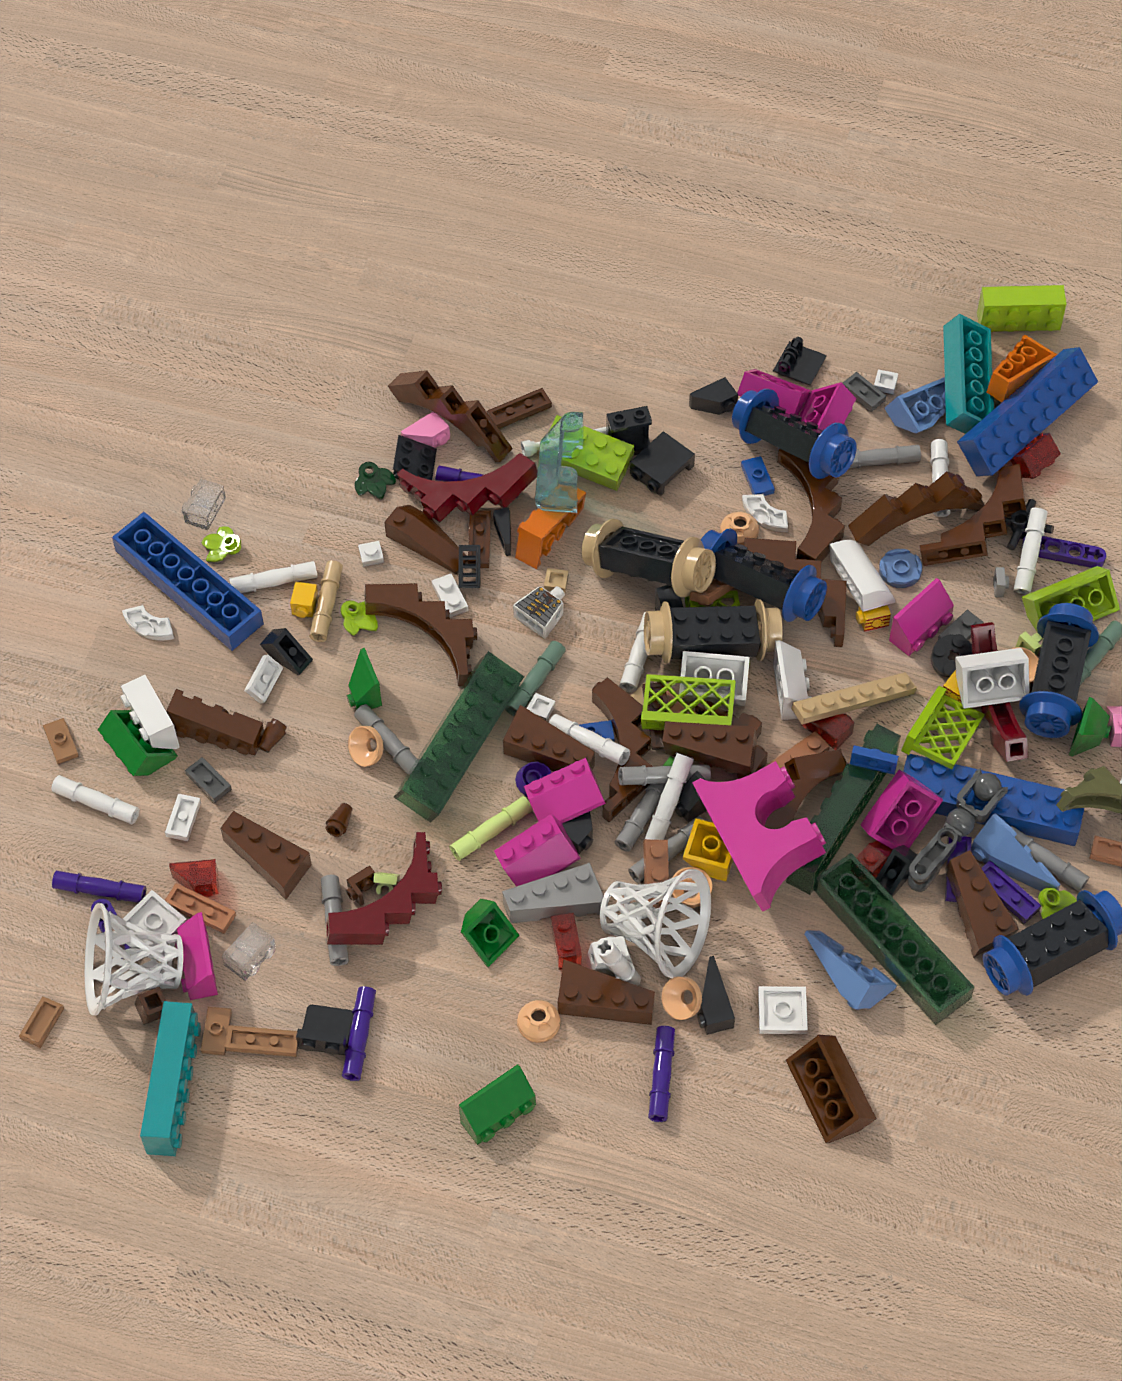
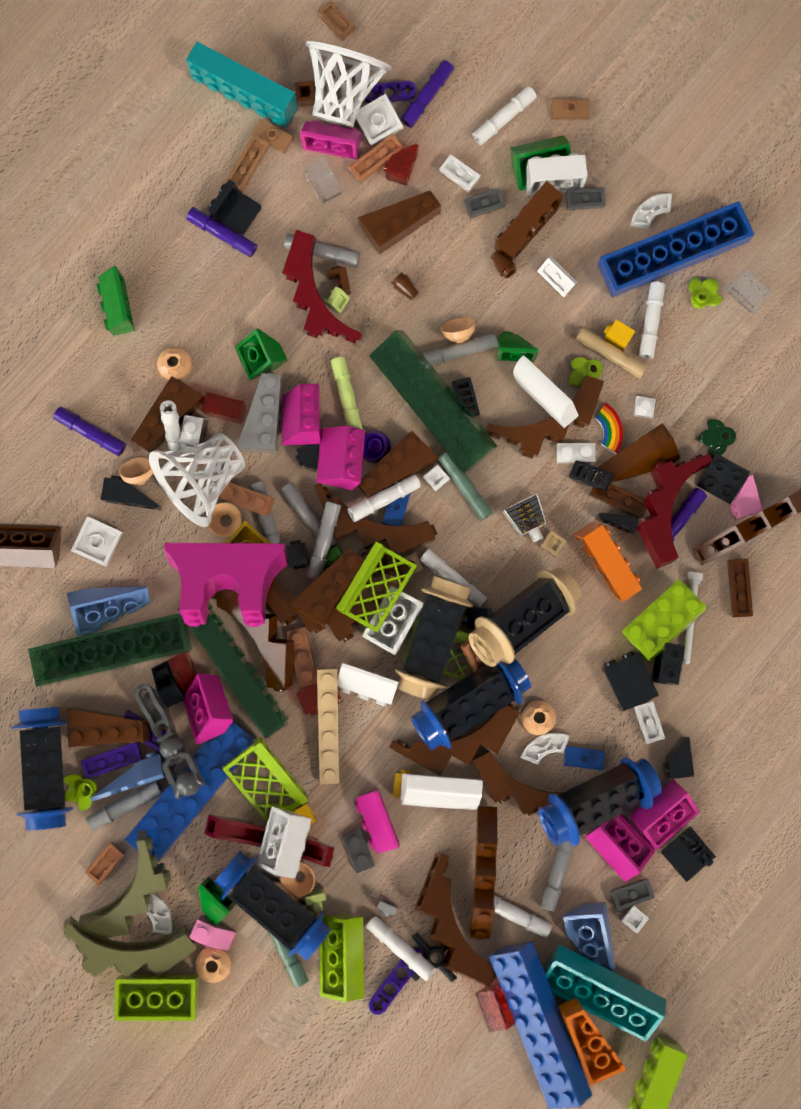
camera: 115 degrees right, 25 degrees up
(161, 683) = (585, 198): none -> dark grey plate
(286, 650) = (576, 303): black slope -> none
(402, 632) = (544, 392): none -> white brick
(411, 571) = (611, 428): none -> tile
(429, 712) = (466, 381): none -> black slope
(556, 483) = (672, 586): clear light blue windscreen -> none
(669, 797) = (300, 534): white piece -> none
(695, 433) = (649, 722): none -> white plate
(874, 759) = (248, 703): blue plate -> none
(900, 568) = (441, 832): medium blue tile -> none
(941, 651) = (342, 821): black plate -> none

